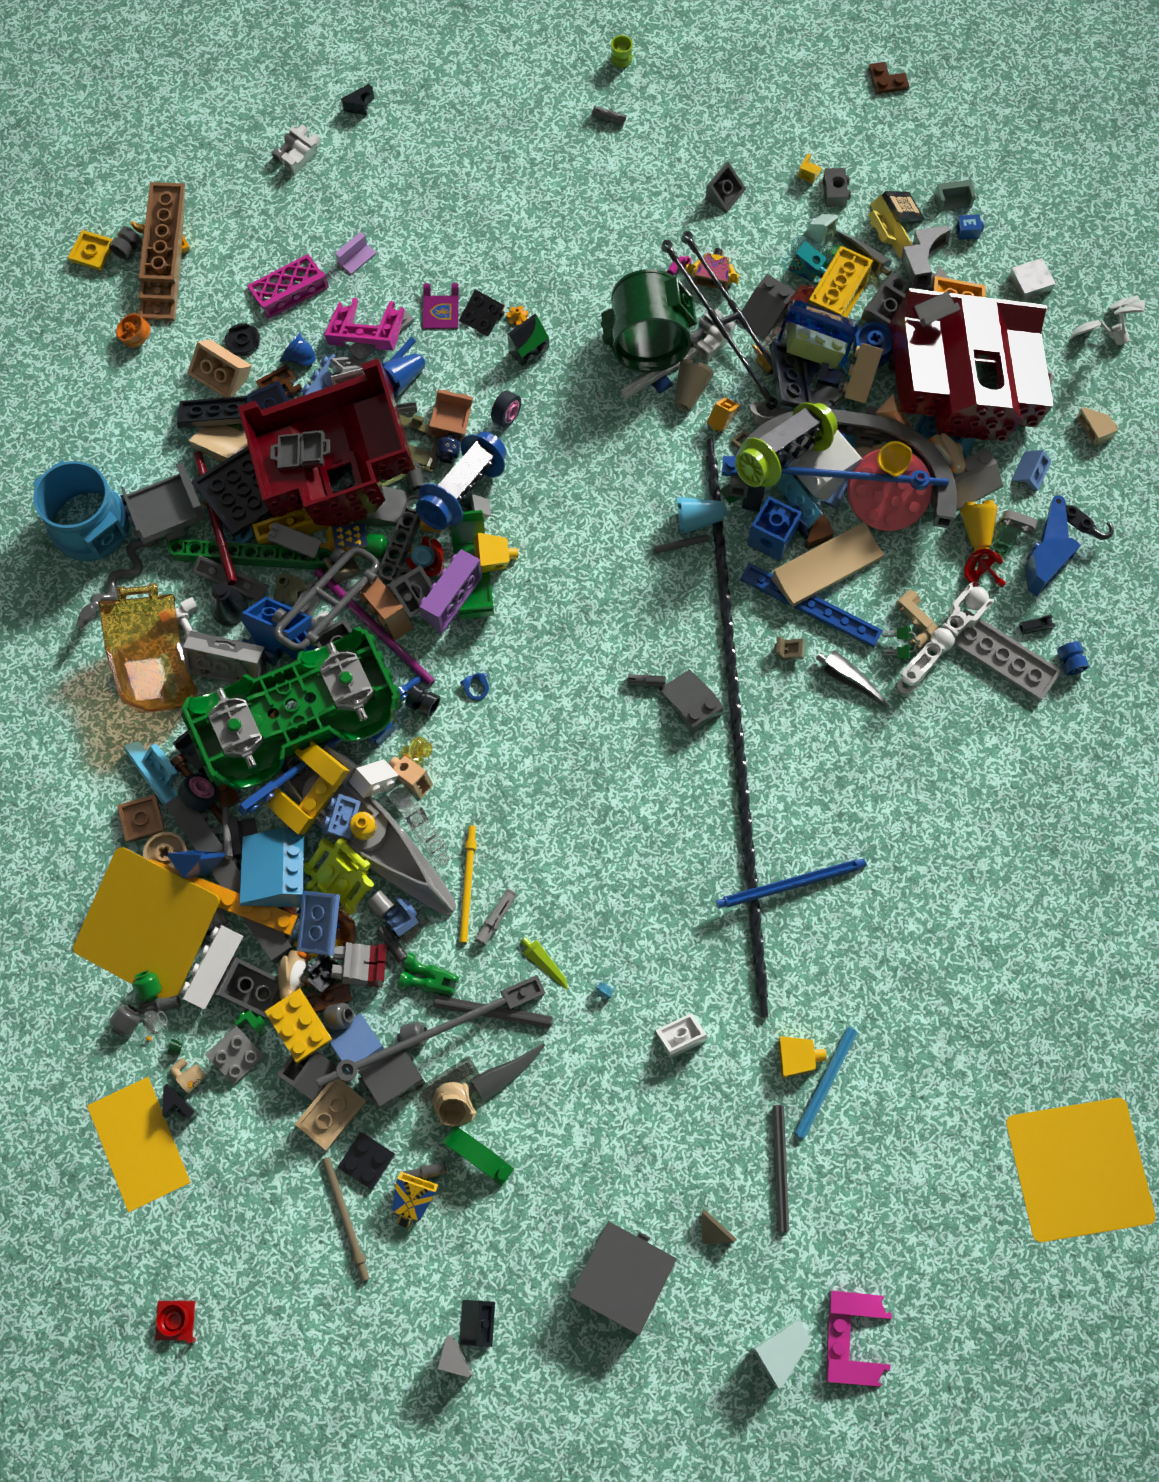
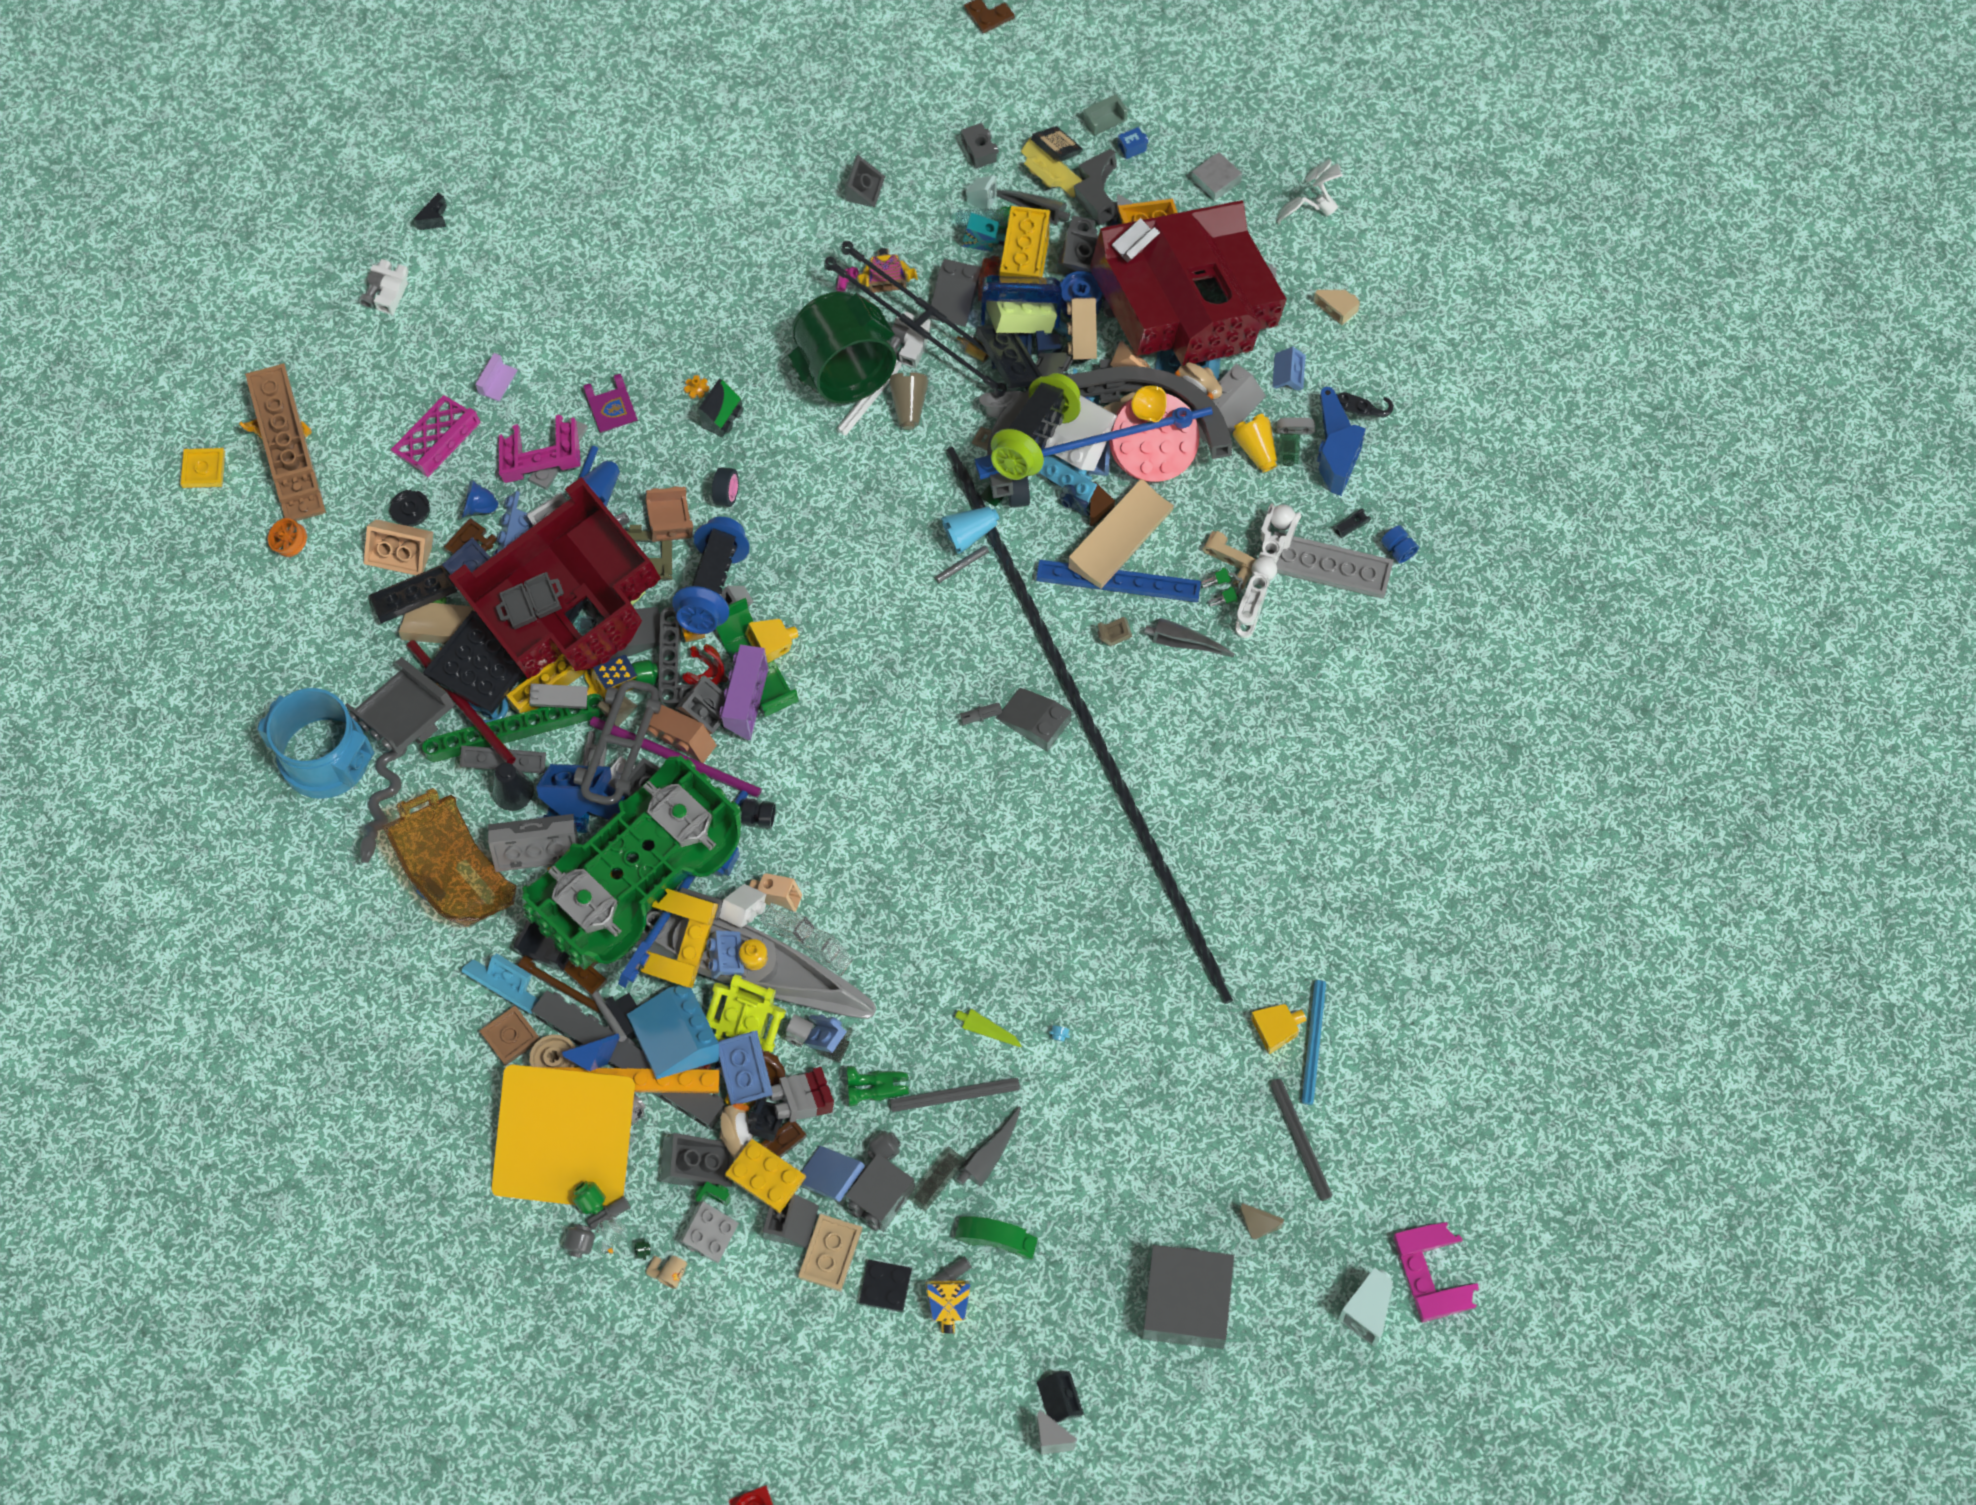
camera: 20 degrees left, 5 degrees down
(125, 242) = (238, 447): dark grey wheel -> none
(138, 1144) = (643, 1357): yellow piece -> none
(173, 1100) = (664, 1299): black slope -> none
(182, 614) = (467, 807): white bar -> none
(198, 792) = (562, 985): black wheel -> none
(211, 967) = (649, 1153): white brick -> none
(288, 591) = (571, 750): olive plate -> none
(338, 1016) = (801, 1154): dark grey head -> none
(344, 364) = (534, 498): light grey slope -> none
(359, 1258) = (916, 1381): dark tan bar -> none
(392, 943) = (828, 1067): dark grey axle -> none
(415, 477) = (658, 593): dark grey piece -> none
(418, 749) = (773, 863): clear yellow animal -> none
(422, 556) = (698, 666): medium azure animal -> none
(448, 449) = (680, 548): dark blue head -> none
(453, 1104) = (953, 1195): tan helmet -> none
(470, 846) = (866, 942): yellow bar -> none
(482, 313) = (658, 396): black hinge -> none
(482, 678) = (810, 769): blue piece -> none
(498, 913) = (922, 994): light grey pin -> none
(511, 997) = (969, 1072): dark grey bar -> none
(608, 115) = (710, 145): dark grey pin -> none
(621, 51) = (697, 72): lime wheel -> none
(662, 384) = (877, 407): dark blue piece -> none
(681, 1035) = (1154, 1049): white slope -> none
(722, 414) = (953, 418): light orange slope -> none
(774, 528) = (1053, 516): blue brick -> none
(790, 883) = (1205, 862): blue piece -> none
(808, 171) = (944, 136): yellow panel -> none
(984, 565) = (1270, 496): red helmet -> none
(1080, 1169) = (1589, 1034): yellow piece -> none

